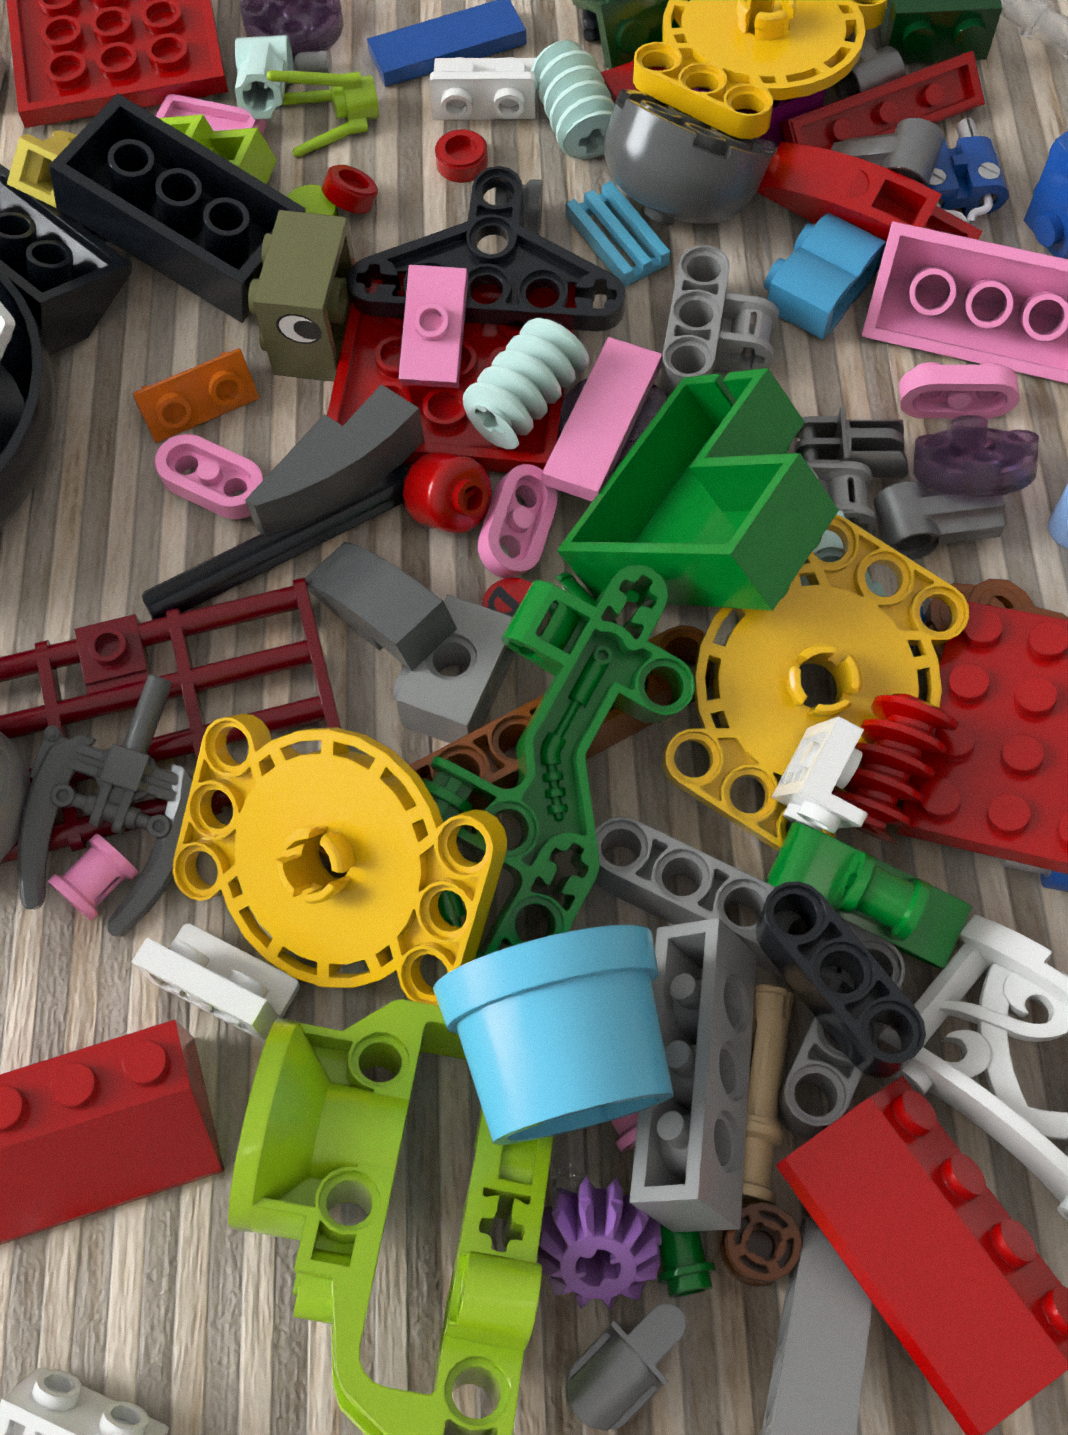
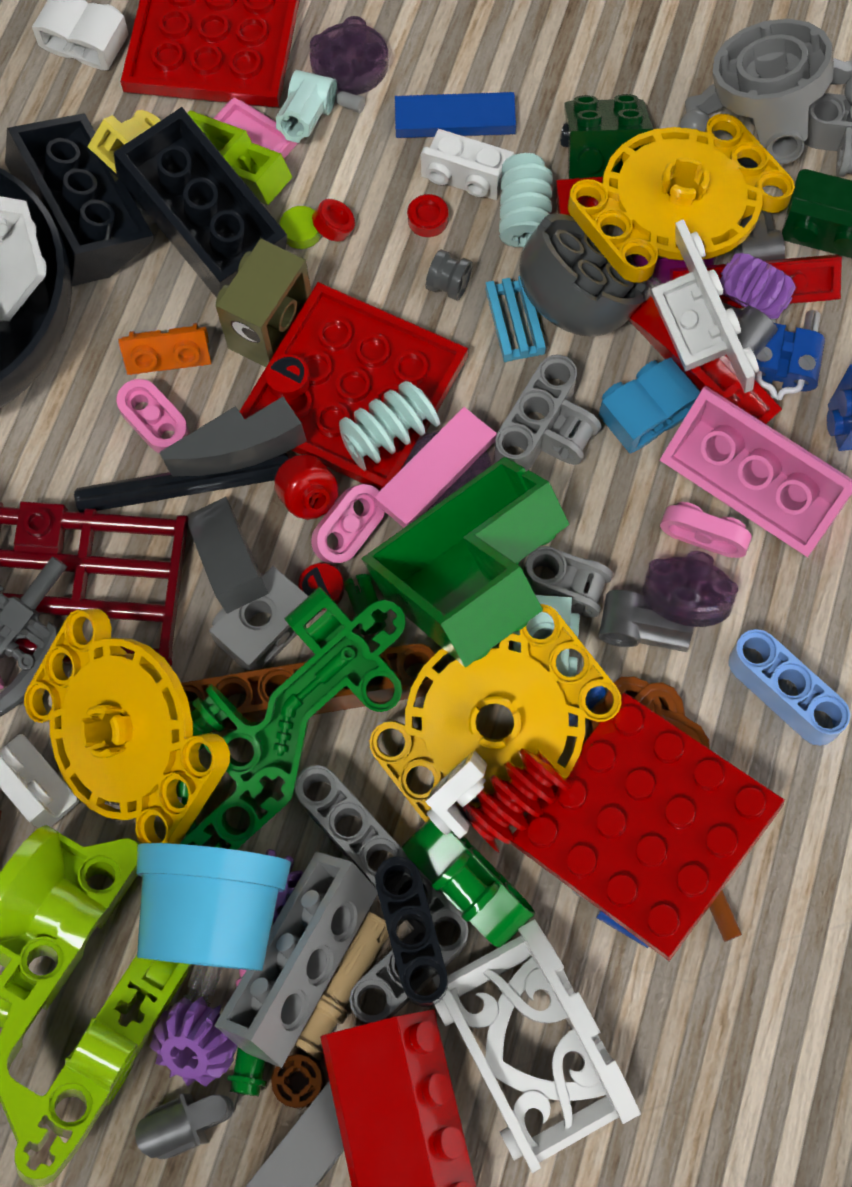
camera: 20 degrees right, 5 degrees up
(351, 96) = (363, 144): lime plant -> none
(367, 367) = (287, 376): none -> red tile
(433, 326) = (342, 358): bright pink plate -> none
(517, 270) = (422, 331): black beam -> none
(855, 140) = (697, 317): none -> white bracket
(865, 441) = (614, 548): flat silver arm -> none
(895, 92) = (757, 285): none -> medium lavender gear

